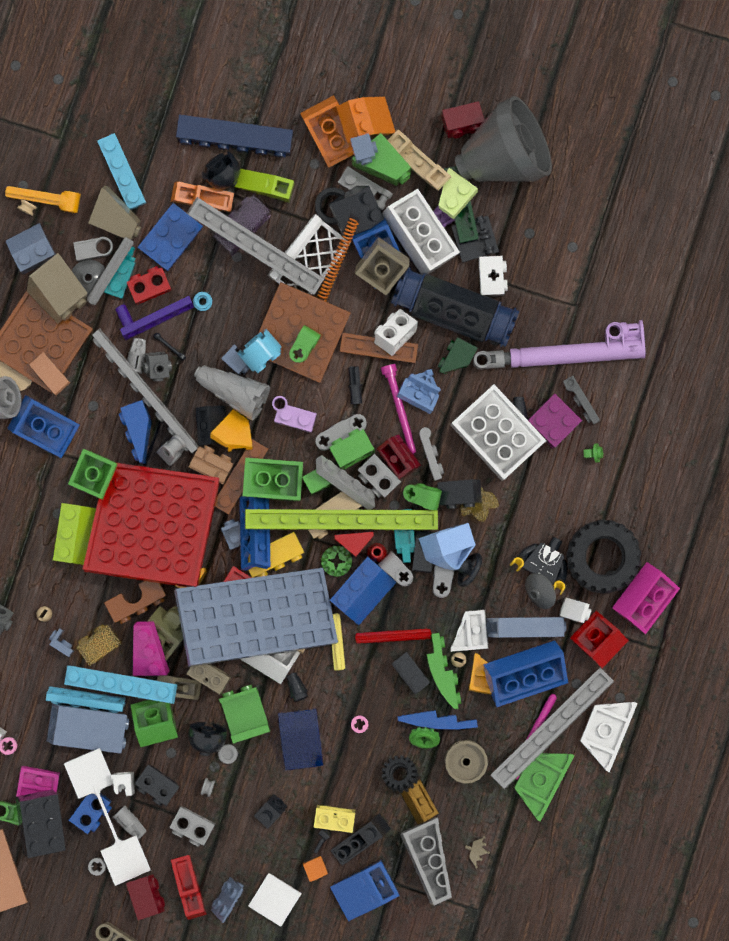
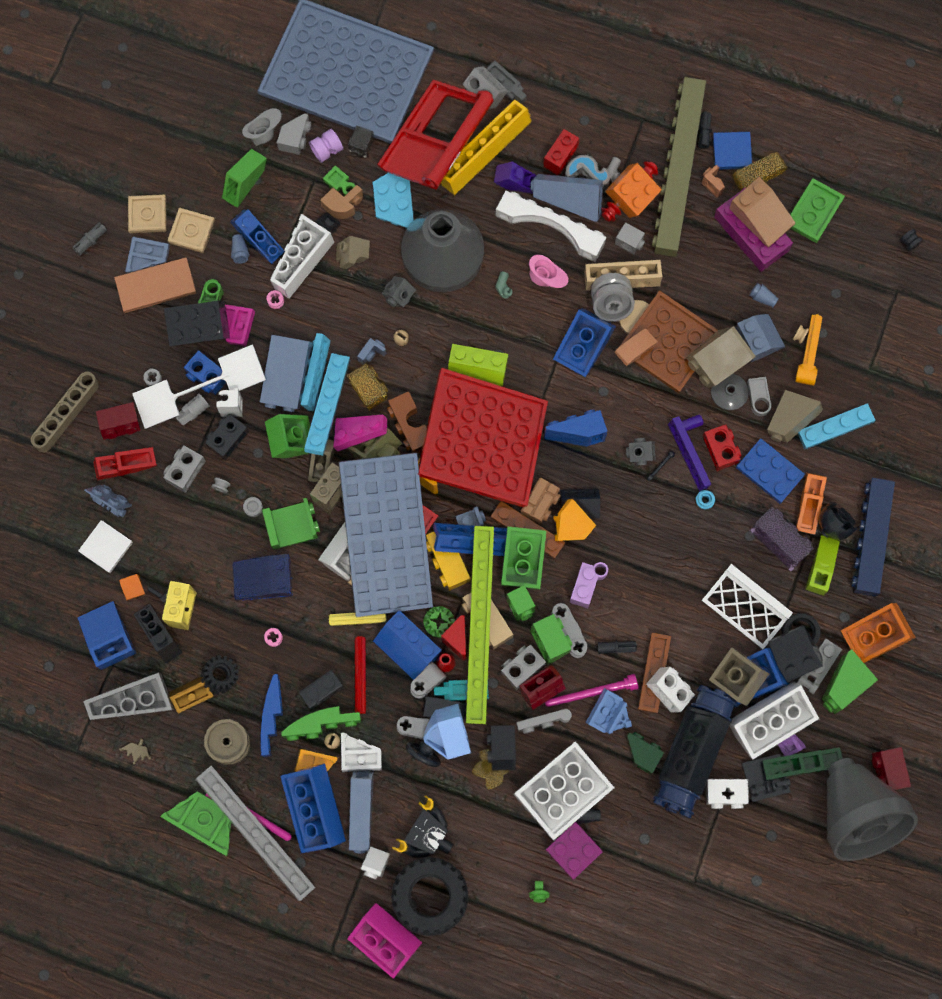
camera: 95 degrees right, 10 degrees down
(93, 473) = (536, 384): bright green slope -> none
(110, 270) = (737, 409): light grey axle -> none
(118, 284) = (735, 421): teal hinge -> none
(137, 354) = (658, 434): light grey hinge -> none
(139, 384) = (621, 433): light grey plate -> none
(172, 450) = (556, 462): light grey piece -> none
(207, 738) = (269, 484): black cylinder -> none
(234, 361) = (644, 529): sand blue brick -> none
(239, 392) = (612, 530): light grey cone -> none
(255, 245) = (761, 547): light grey plate -> none
(260, 350) = (655, 550): medium azure brick -> none
(270, 811) = (193, 546): black bracket -> none
(287, 316) = (672, 594): dark orange plate -> none
(296, 687) = (313, 576): black cone -> none
(306, 341) = (661, 596): bright green piece -> none
(339, 263) = (744, 629): orange piece -> none
(345, 482) = (517, 629): light grey plate -> none
(363, 149) = (861, 660): sand blue brick -> none
(365, 116) = (893, 666): orange slope -> none
(417, 737) = (254, 701): bright green gear -> none
(419, 162) = (848, 720): tan slope -> none
(423, 495) = (501, 710): bright green piece -> none
(456, 194) = (813, 757): yellowish green wing -> none
(540, 591) = (397, 827): dark grey dish -> none
(580, 398) = (595, 882): dark grey hinge -> none
(599, 639) = (344, 888): red slope -> none
(606, 731) = (248, 891): white wing -> none
(621, 347) = (650, 930): lavender piece -> none

